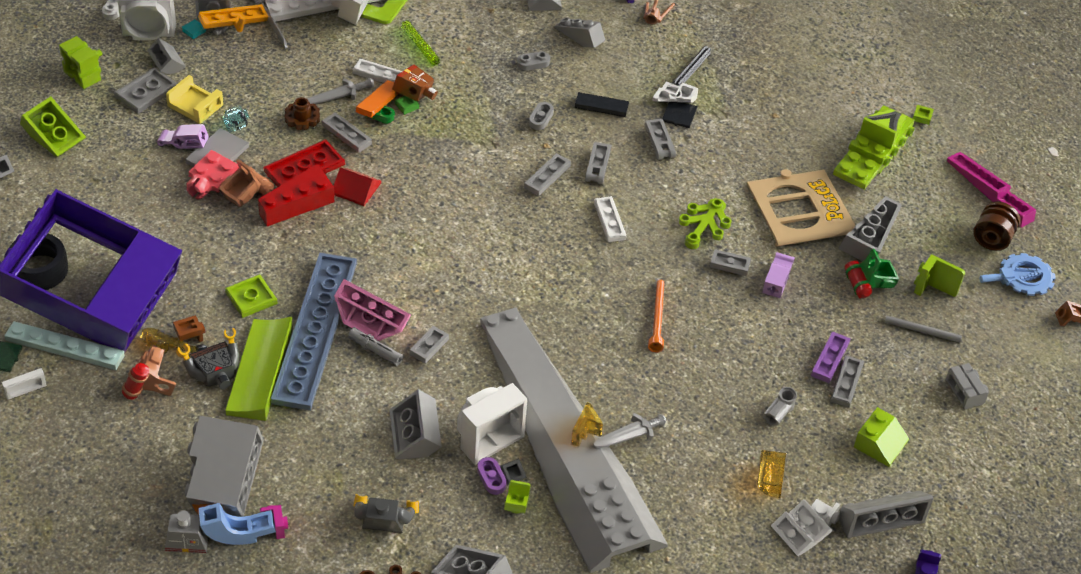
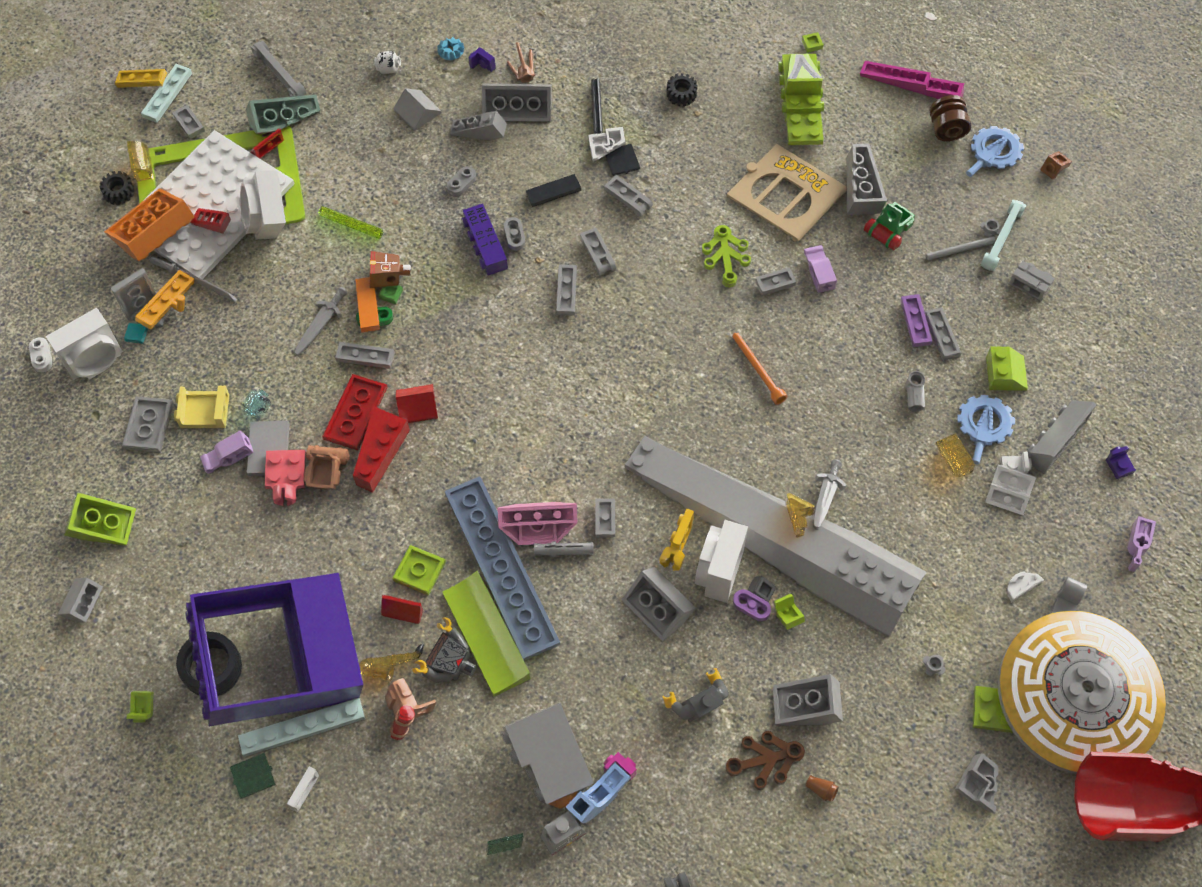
camera: 30 degrees left, 15 degrees up
(80, 62) = (68, 436): lime brick -> none
(132, 511) = (504, 844): none -> clear green piece
(165, 57) = (138, 379): light grey brick -> none
(189, 328) = (399, 639): dark orange bracket -> none
(212, 312) = (401, 609): none -> red slope
(302, 114) = (311, 362): reddish brown plant -> none
(375, 71) = (340, 275): white tile -> none
(468, 386) = (678, 540): none -> yellow plate
(513, 106) = (485, 239): none -> dark purple brick
(610, 219) = (648, 300): white tile -> none
(629, 30) = (518, 101): none -> light grey slope
(780, 96) = (681, 82): none -> black tyre
(818, 472) = (983, 432): none -> light blue bar
(939, 275) = (943, 192): lime bracket -> none
(943, 350) = (991, 260): none -> light aqua piece
(965, 328) = (993, 224): none -> light grey plate

